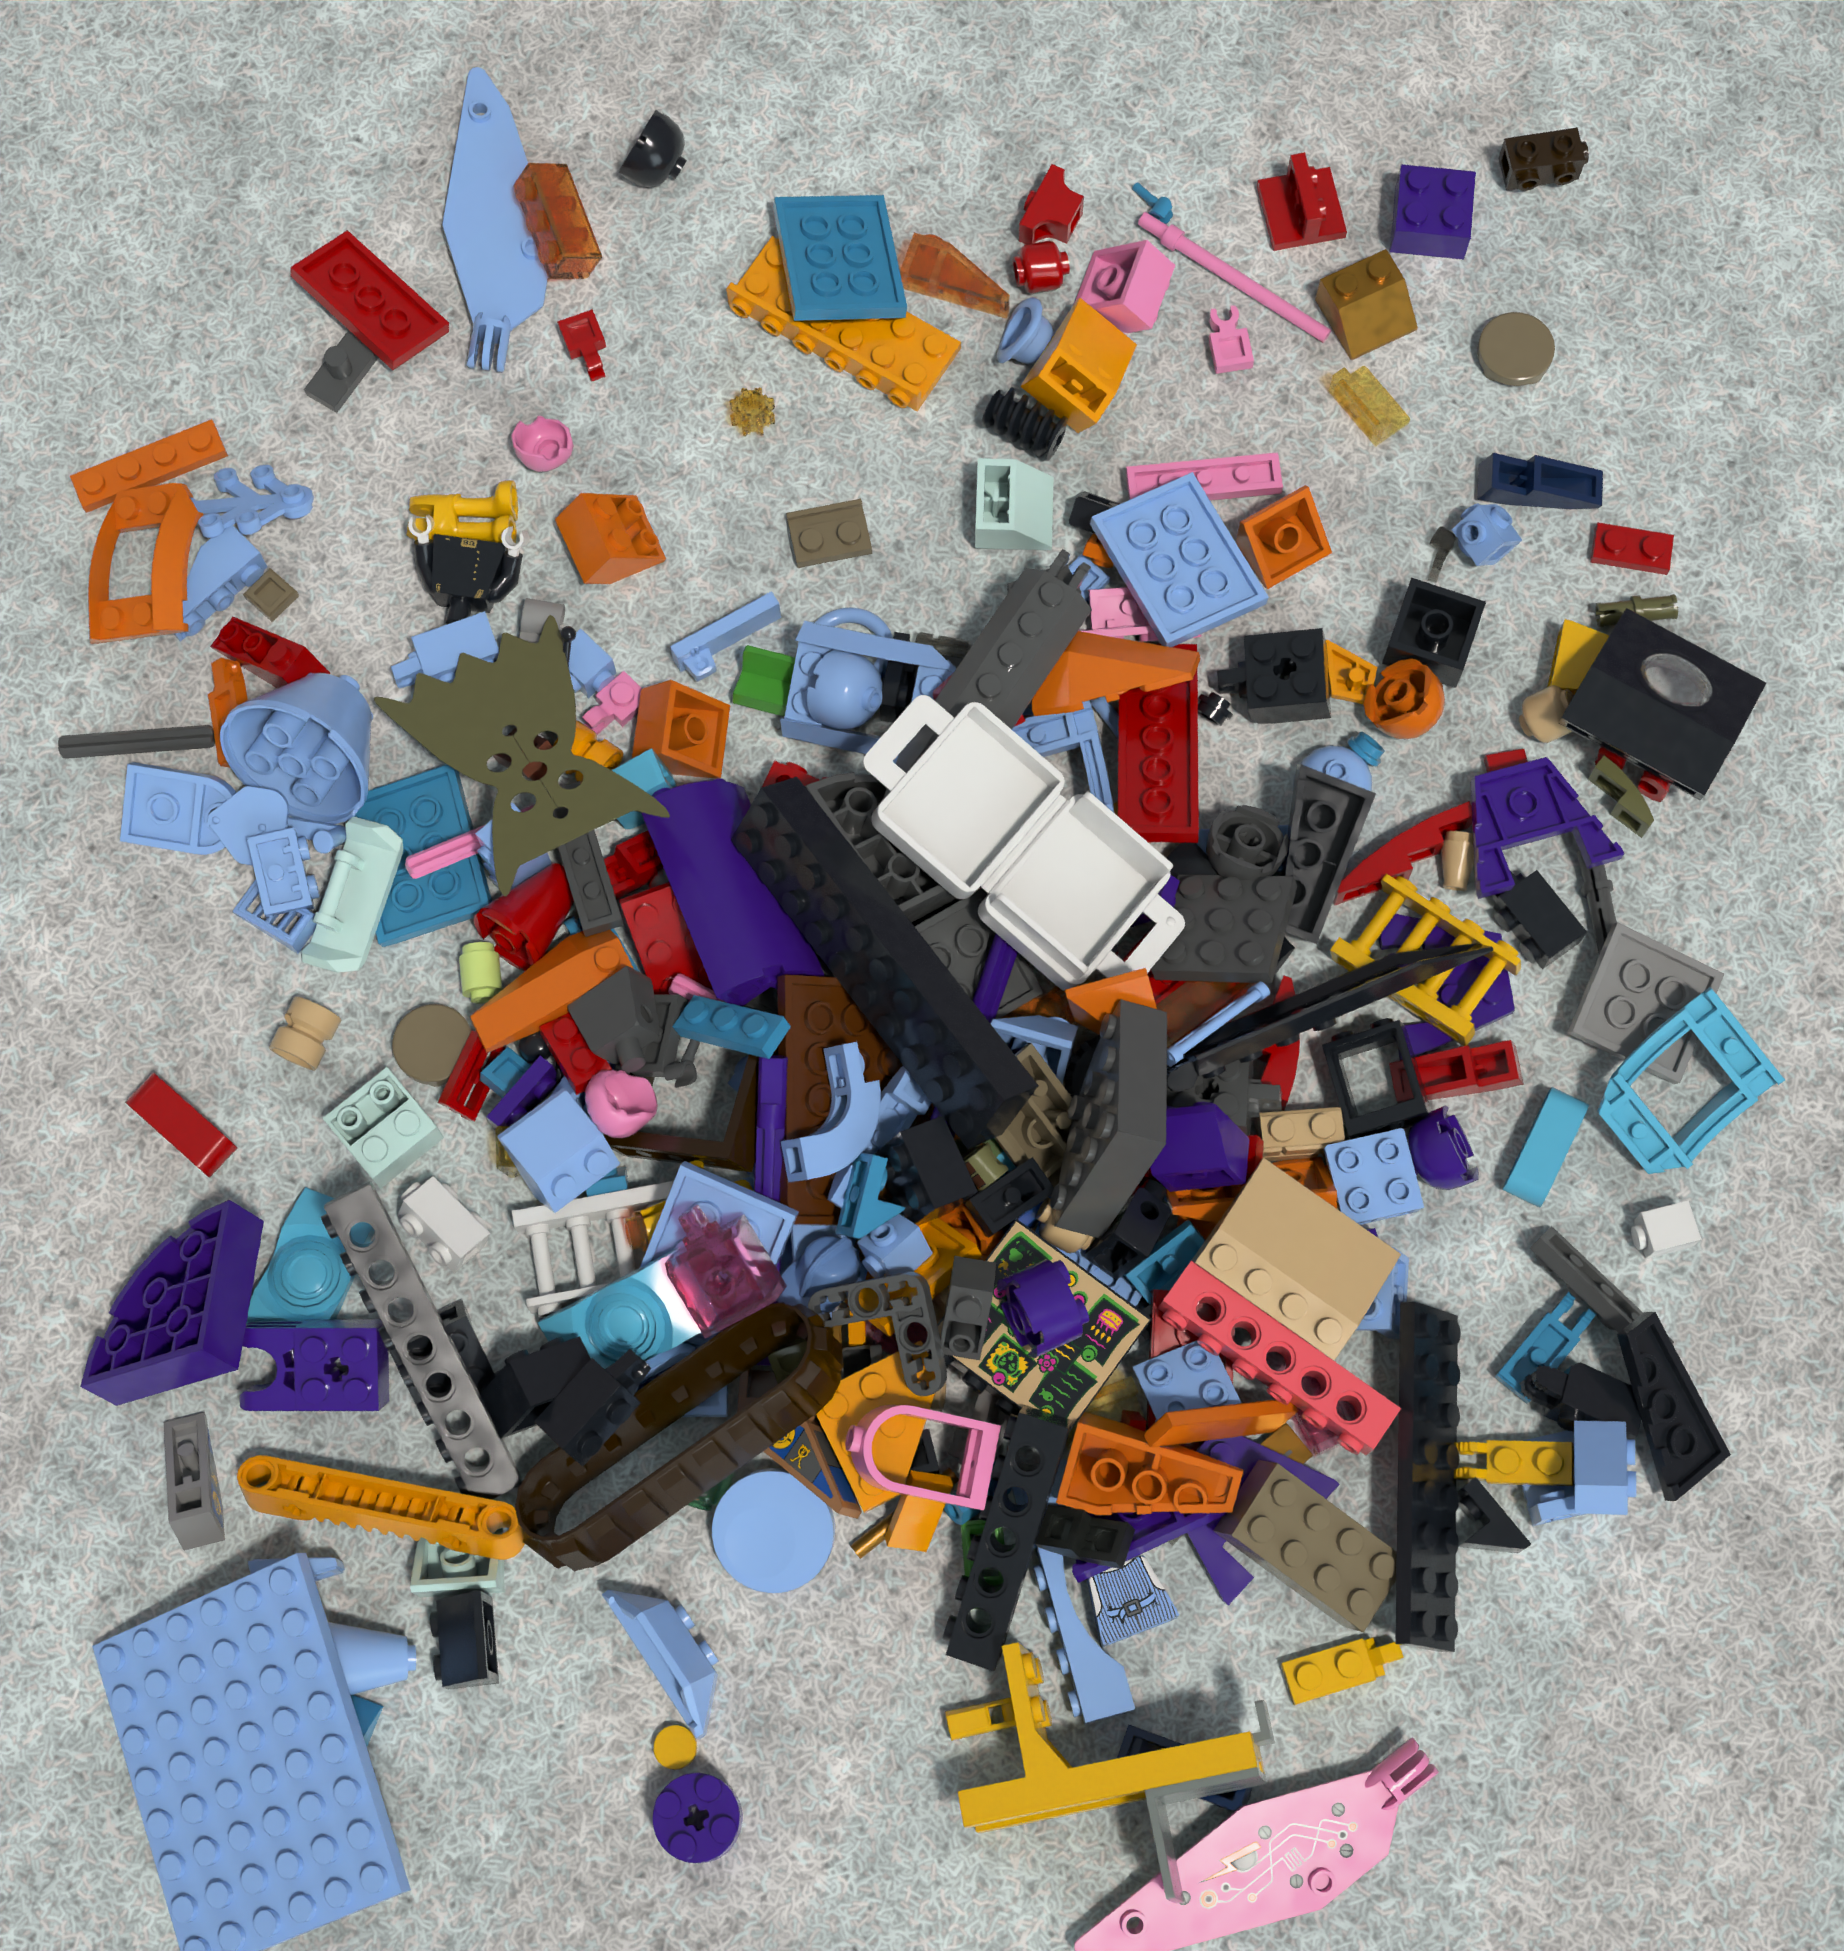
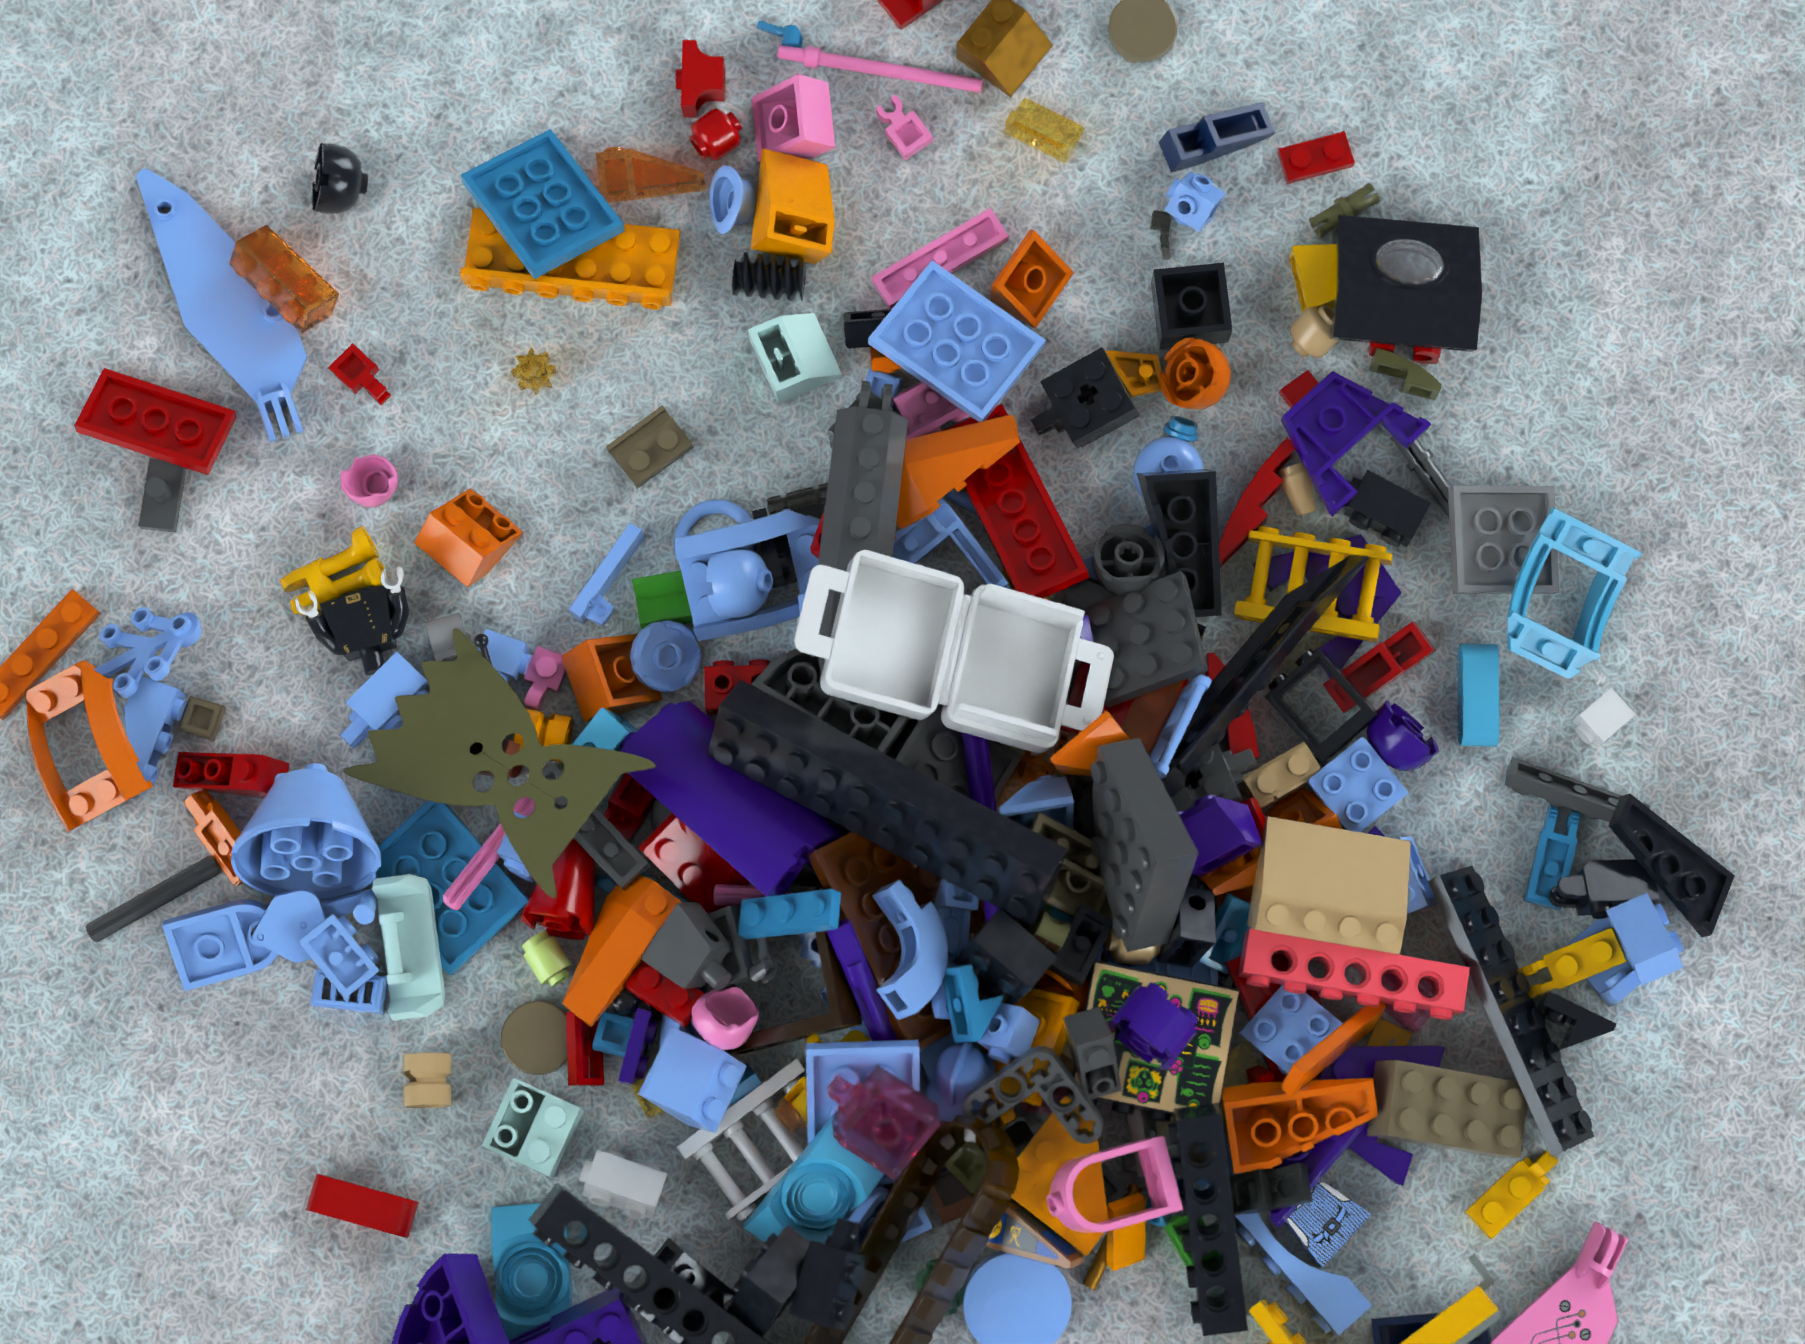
camera: 25 degrees left, 5 degrees up
(742, 735) = (665, 656): none -> light blue tile
(1214, 708) = (1042, 451): black plate -> none

